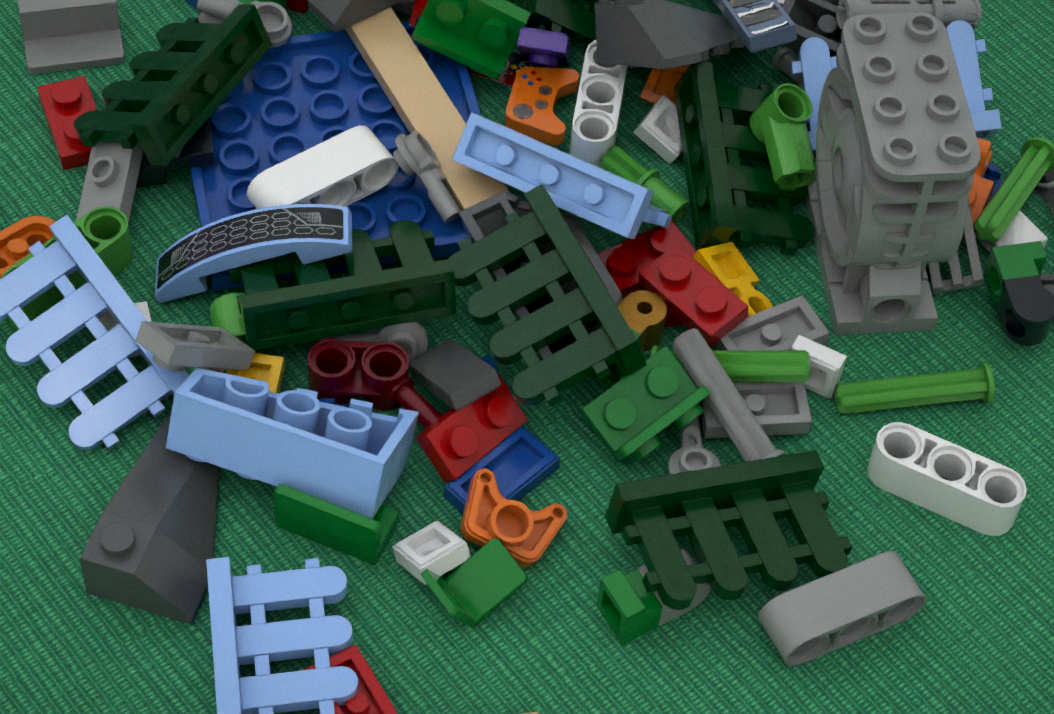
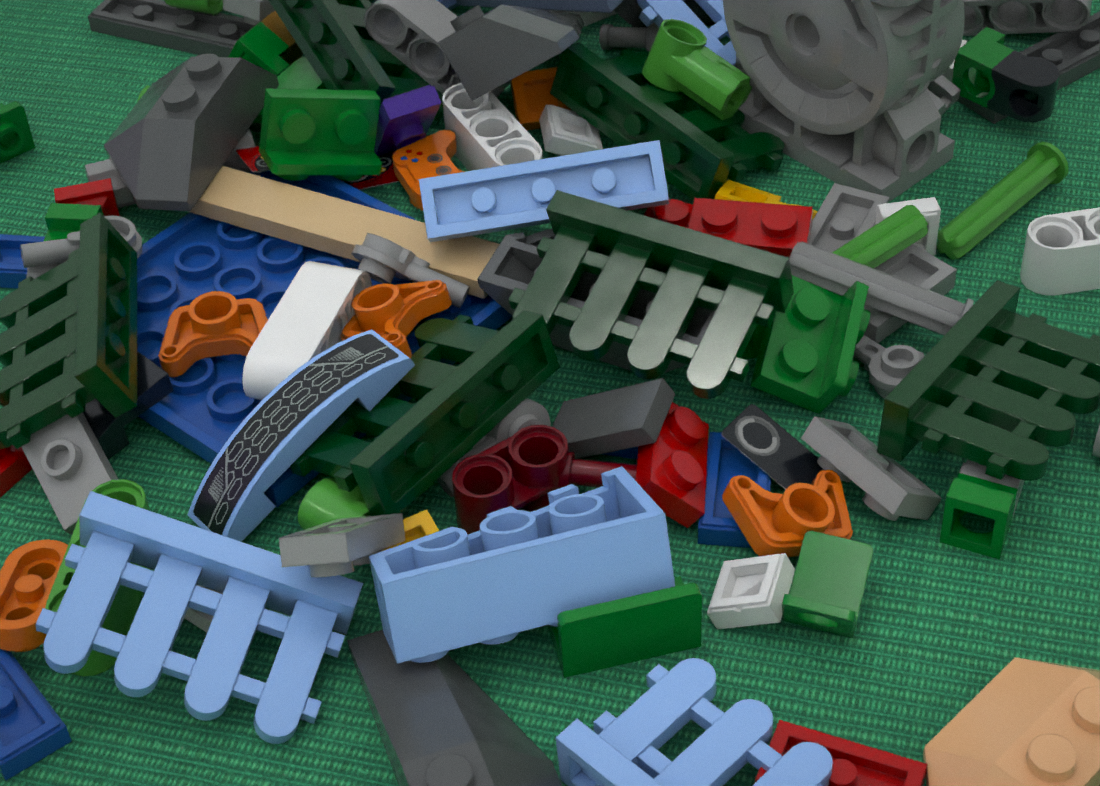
camera: 30 degrees left, 10 degrees down
(270, 132) = (210, 328): none -> orange piece
(386, 198) = (396, 310): none -> orange piece
(547, 469) = (772, 448): none -> black sticker
(588, 539) = (887, 484): none -> light grey plate

